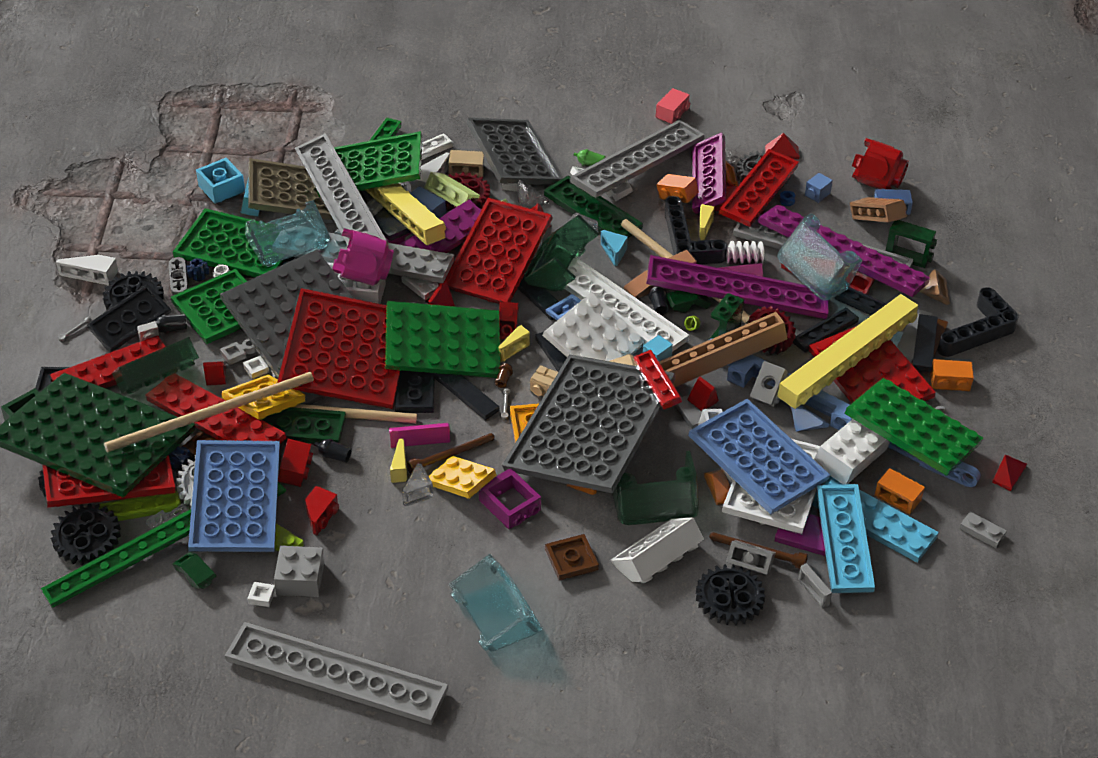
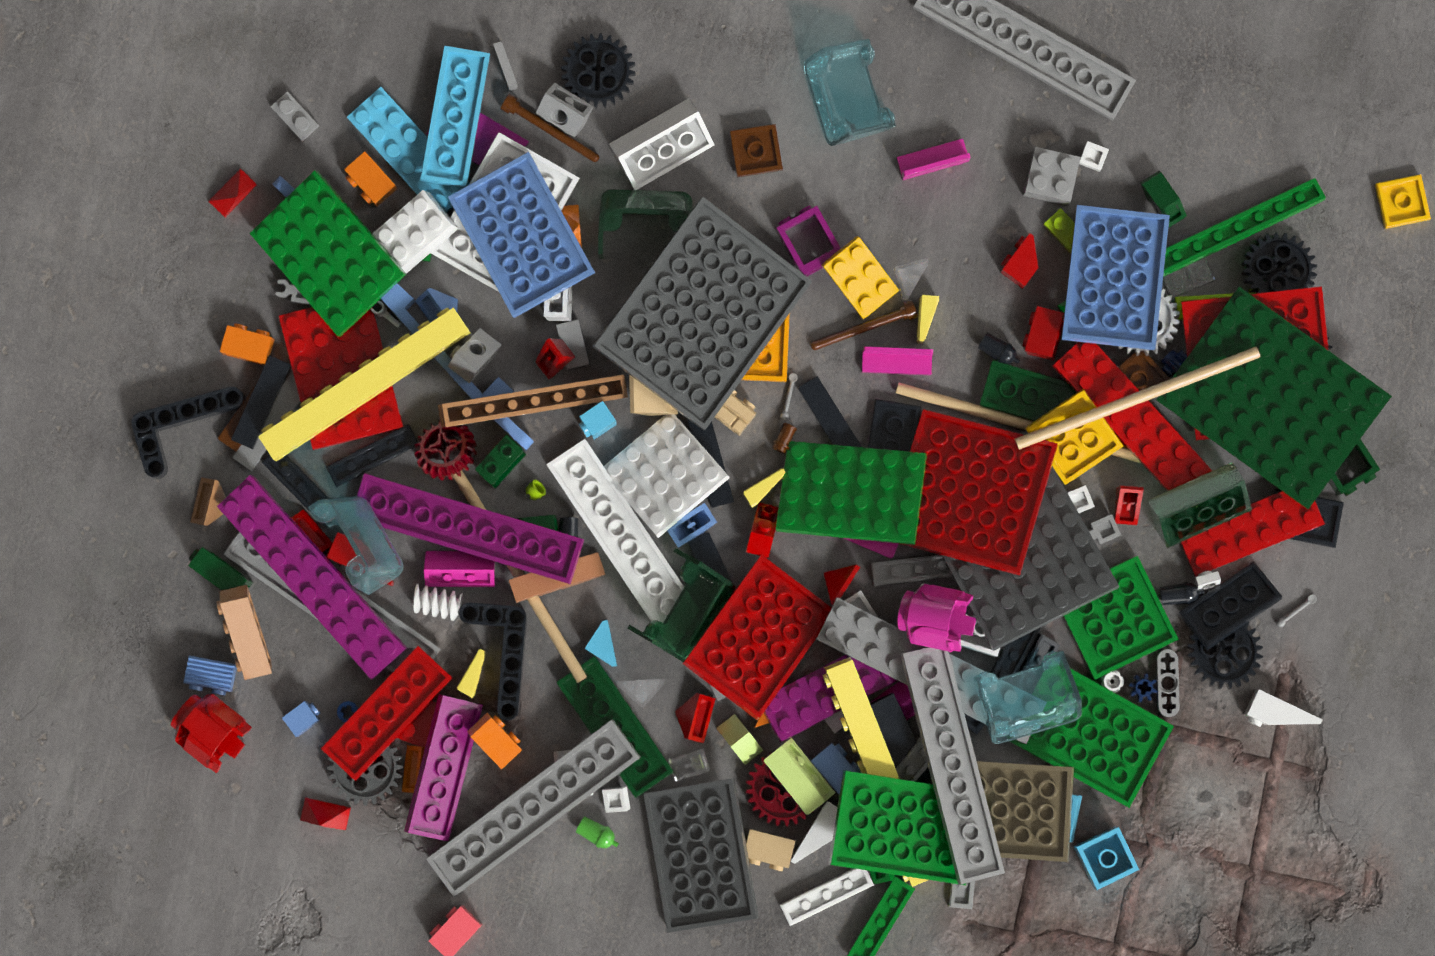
camera: 170 degrees left, 40 degrees up
(409, 570) = (933, 159): none -> dark pink panel
(657, 379) = (616, 339): red tile -> none

